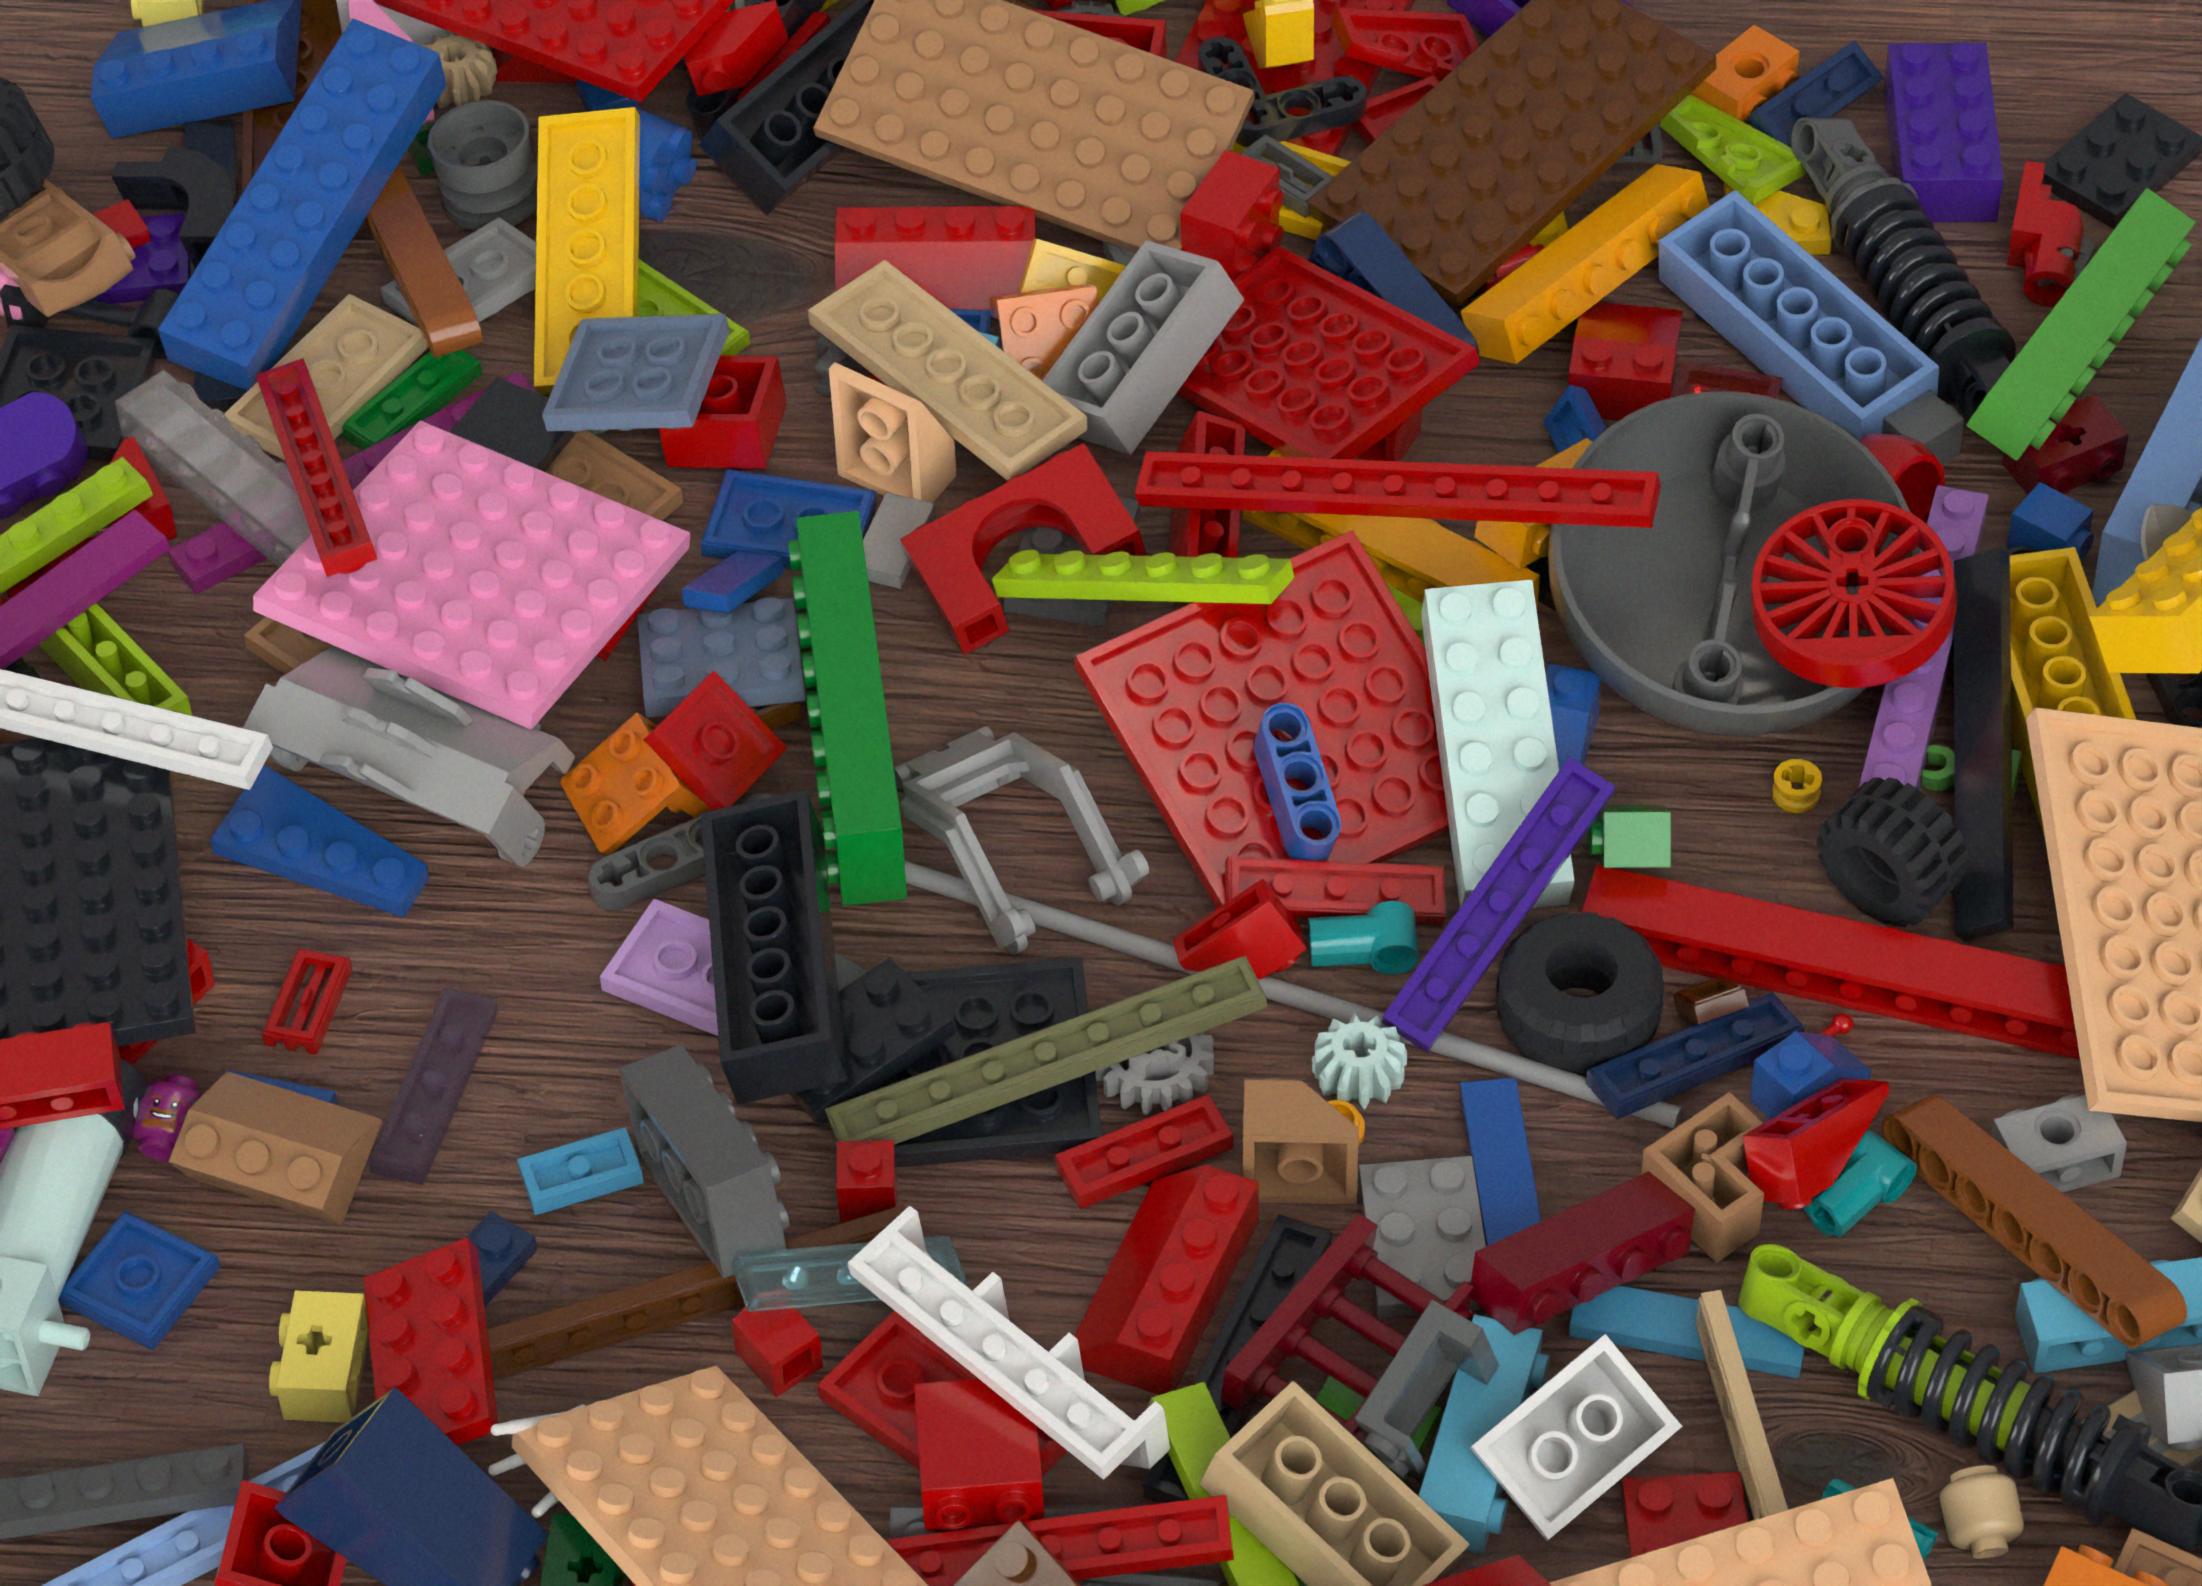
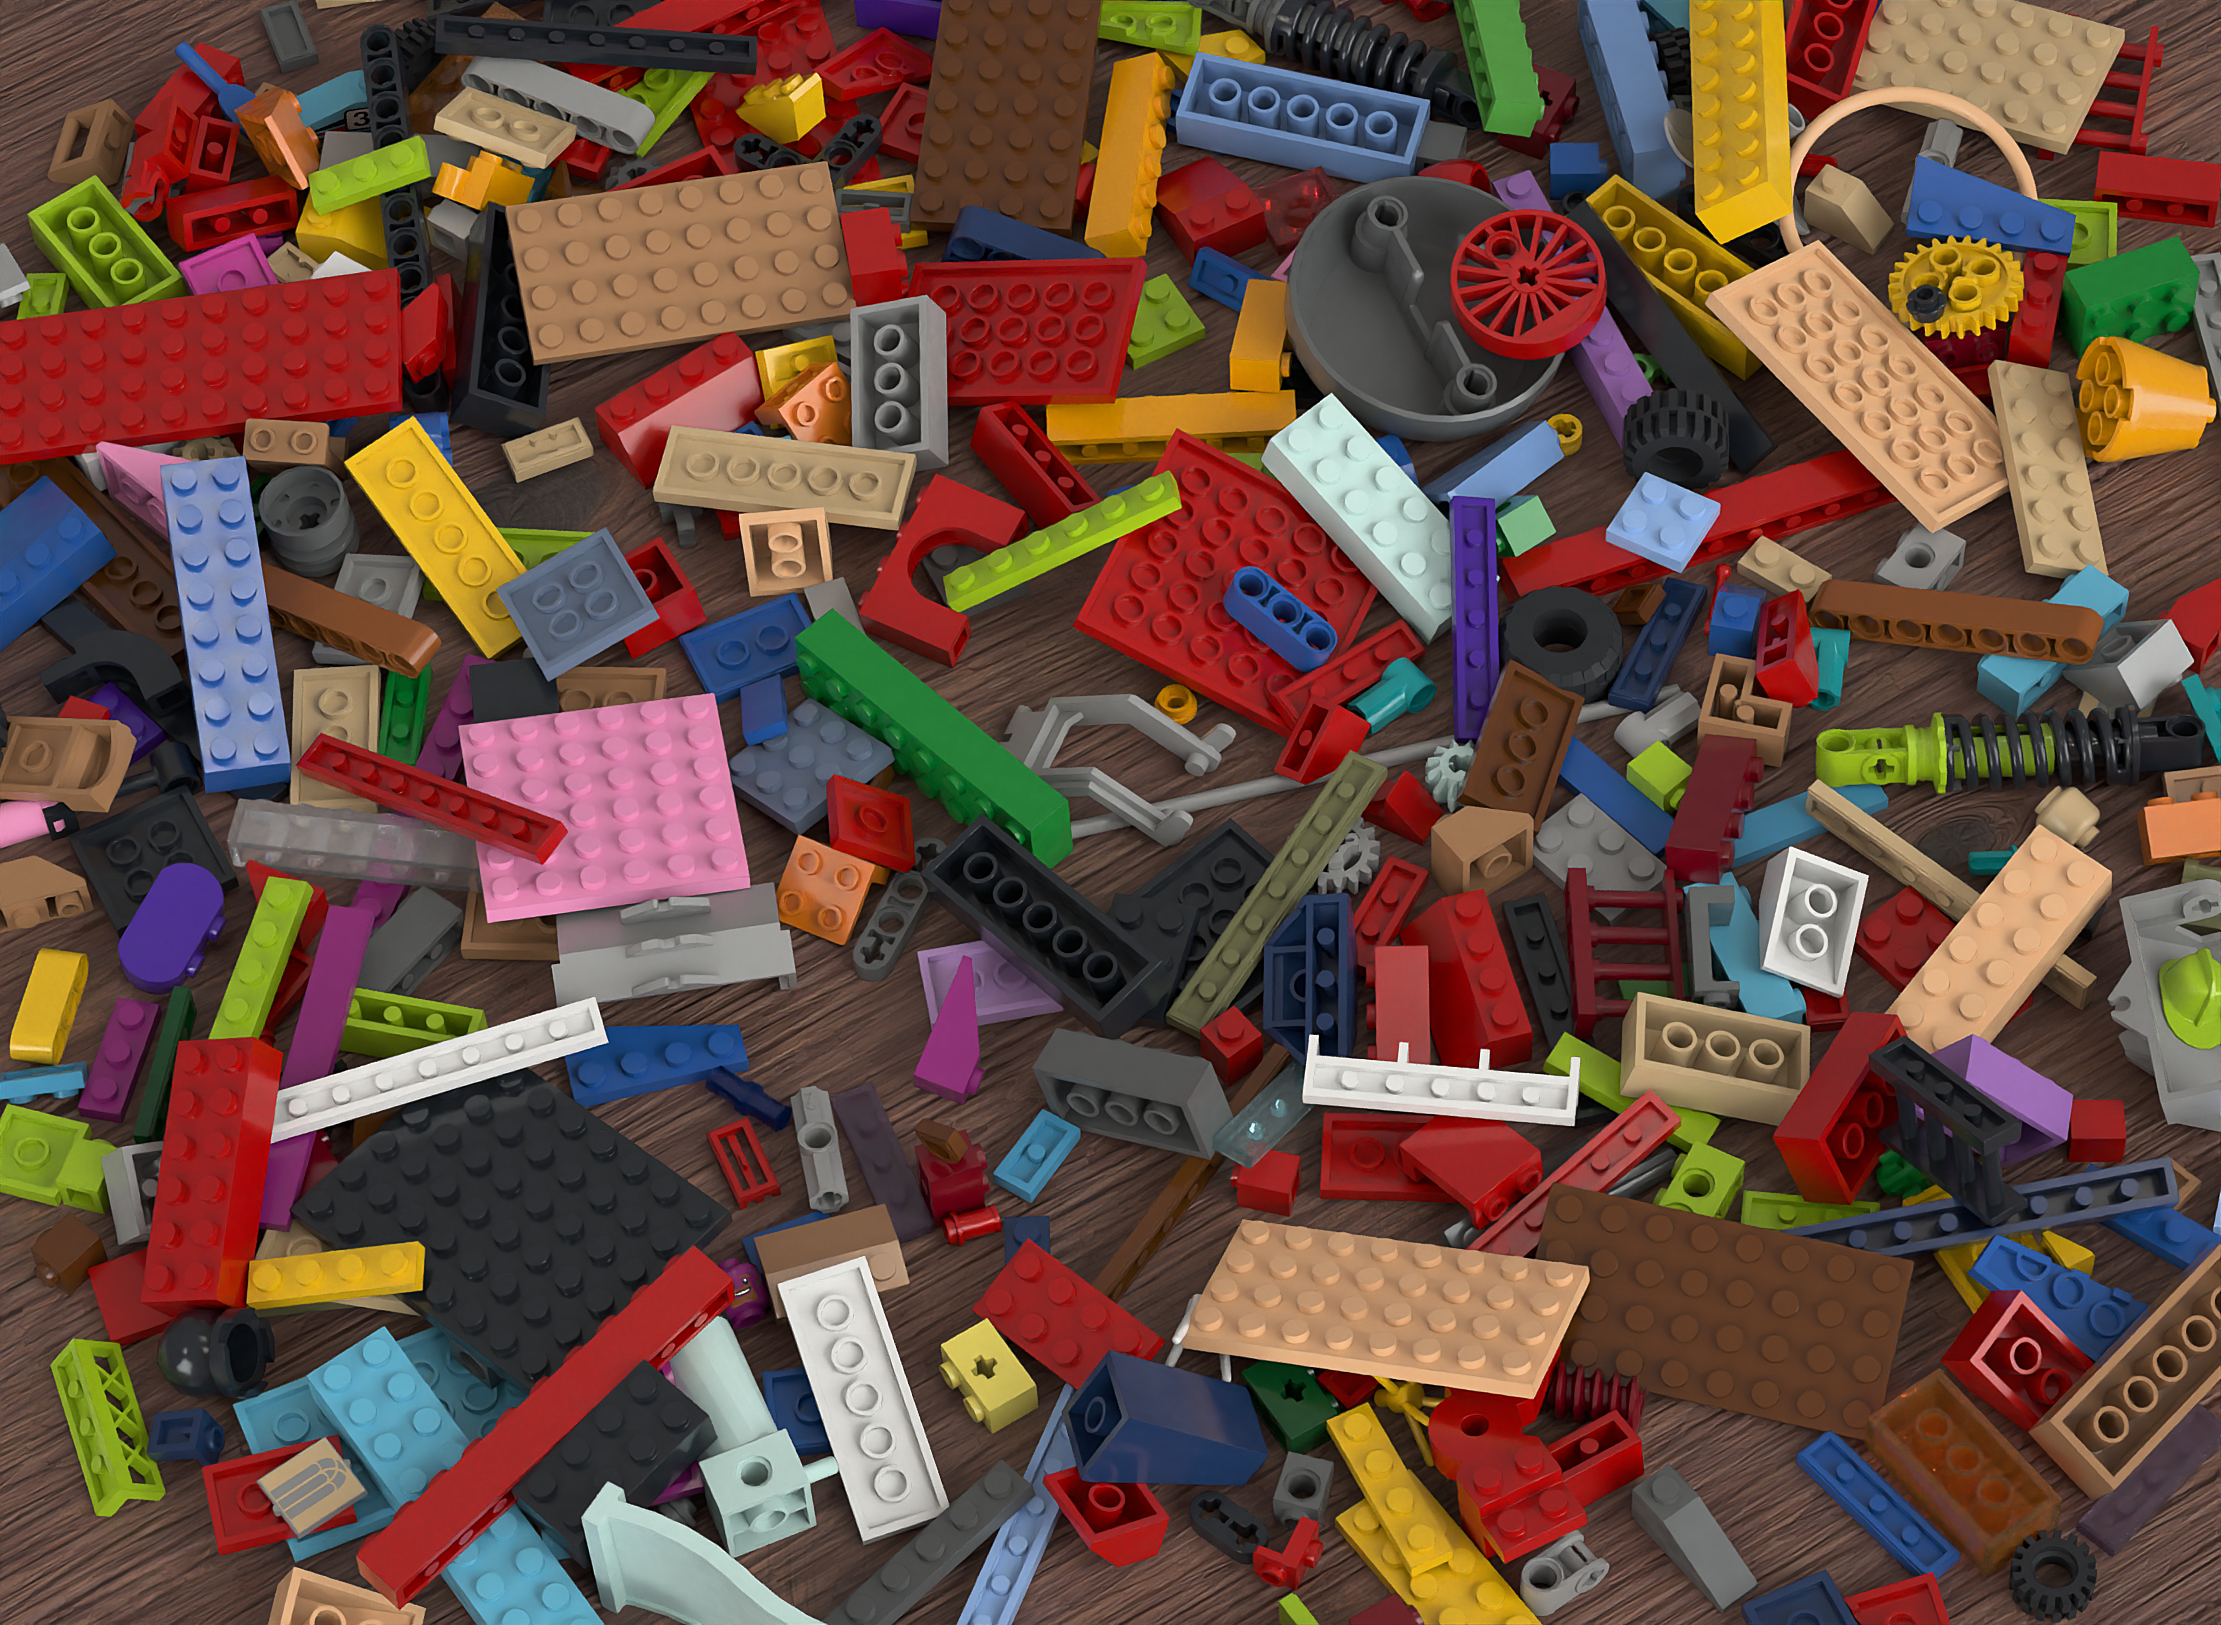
camera: 35 degrees left, 5 degrees up
(169, 1294) = (864, 1399): none -> white plate
(190, 605) = (411, 943): none -> dark grey brick
(367, 941) = (748, 1098): none -> clear blue pin
(377, 1029) = (819, 1149): none -> light grey piece
(448, 1077) = (941, 1140): none -> reddish brown tile
(452, 1197) = (970, 1225): none -> red pin
(462, 1134) = (952, 1186): none -> dark red brick
(517, 79) = (283, 445): none -> medium nougat panel
(597, 1005) = (952, 1051): none -> magenta slope
(774, 228) = (547, 449): none -> tan plate
(1002, 1171) = (1313, 978): none -> dark blue wedge
(1068, 1255) = (1401, 1003): none -> red brick
(1138, 818) = (1177, 696): none -> light orange plate
(1268, 1046) = (1404, 809): none -> red slope
(1399, 489) = (1185, 384): red plate -> none
(1433, 1065) = (1521, 744): none -> reddish brown plate
(1473, 428) = (1162, 323): none -> lime plate
(1523, 1539) = (1824, 1010): none -> red tile
(1563, 1178) = (1660, 776): none -> lime brick
(1599, 1141) = (1663, 723): none -> light grey piece
(1682, 775) = (1499, 468): none -> medium blue slope
(1800, 926) = (1663, 522): none -> light blue plate
(1905, 1059) = (1781, 570): none -> tan plate

